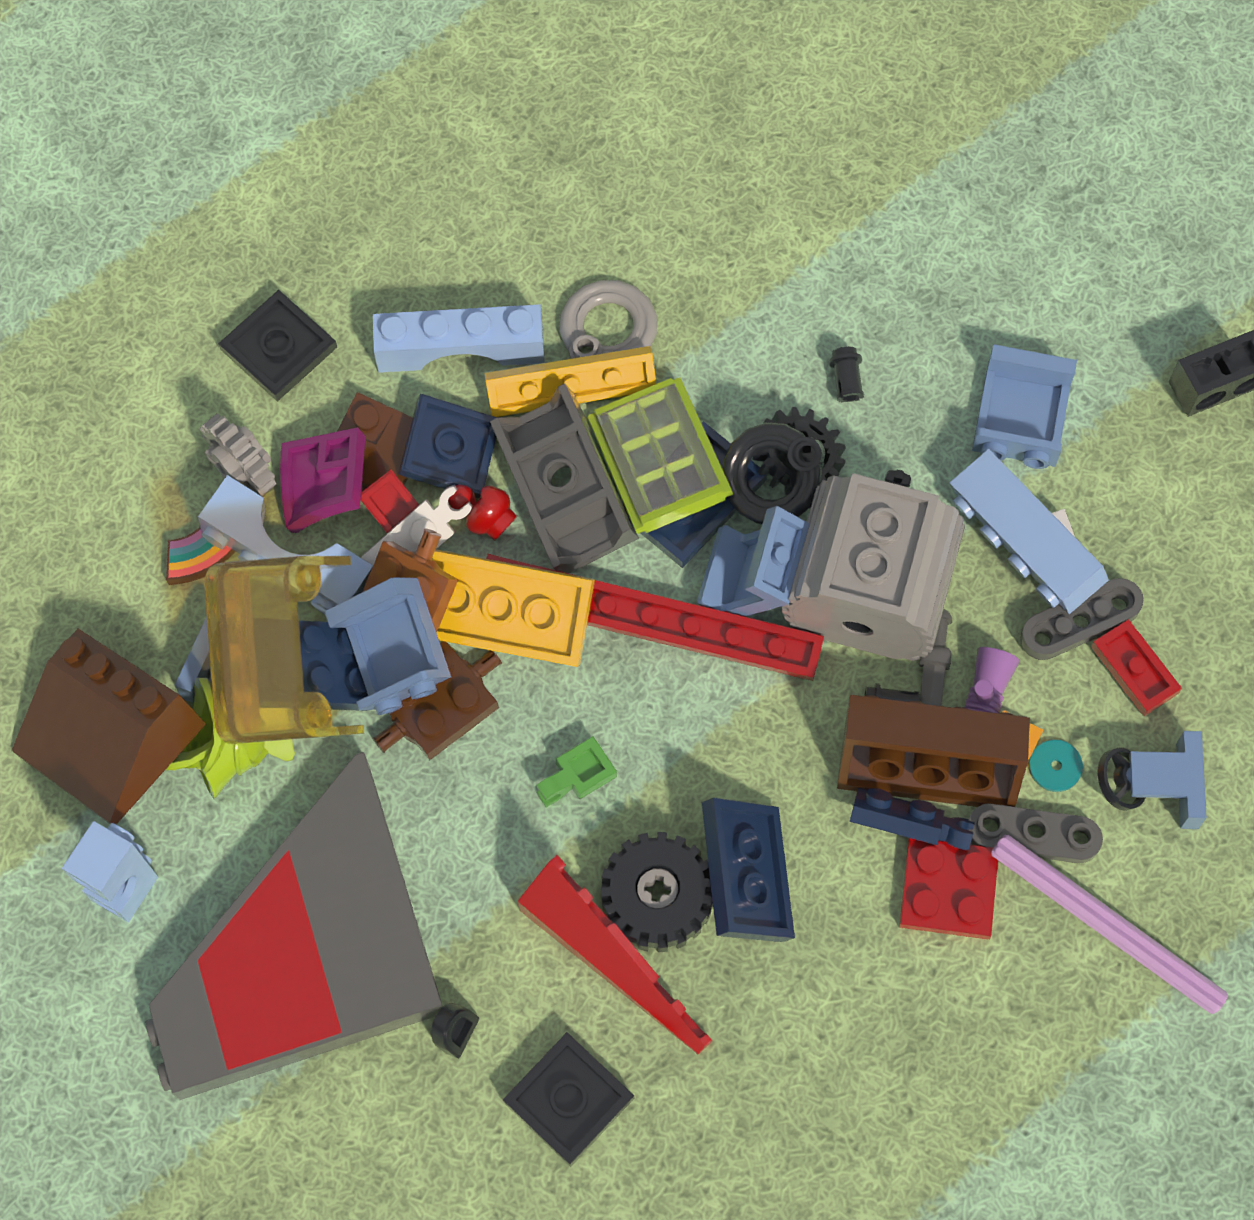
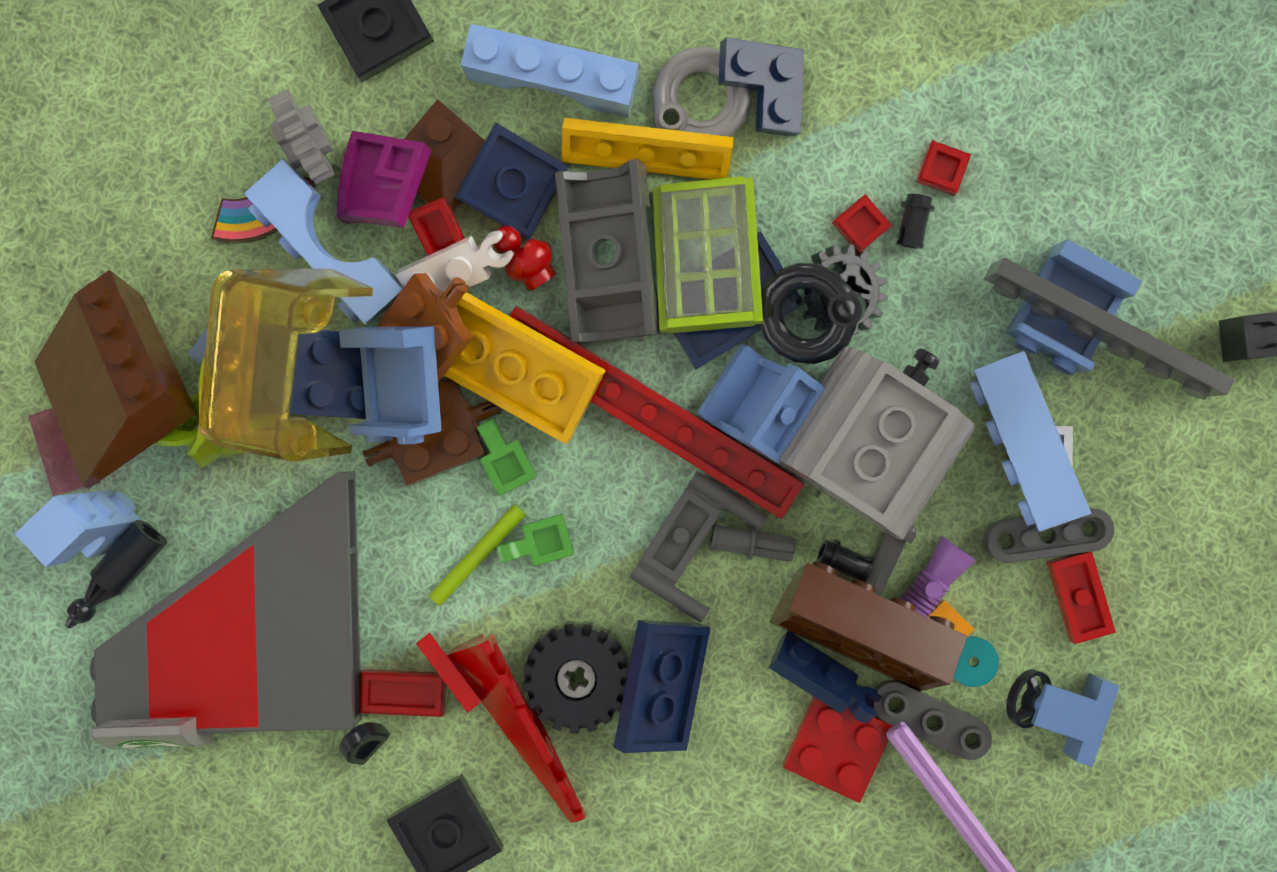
camera: 15 degrees right, 20 degrees up
(58, 817) = (54, 453): none -> clear pink plate
(148, 928) = (117, 570): none -> black wheel
(232, 1073) = (149, 733): none -> light grey slope
(480, 969) = (402, 693): none -> red tile
(518, 807) = (477, 554): none -> lime bar
(521, 705) = (507, 463): none -> bright green plate
(524, 921) = (448, 672): none -> red tile
(672, 286) = (775, 75): none -> plate
(720, 725) = (682, 536): none -> dark grey plate
(793, 712) = (752, 543): none -> dark grey axle
(798, 390) = (861, 223): none -> red tile
(858, 322) = (943, 168): none -> red tile
(1063, 411) = (1121, 337): none -> dark grey plate

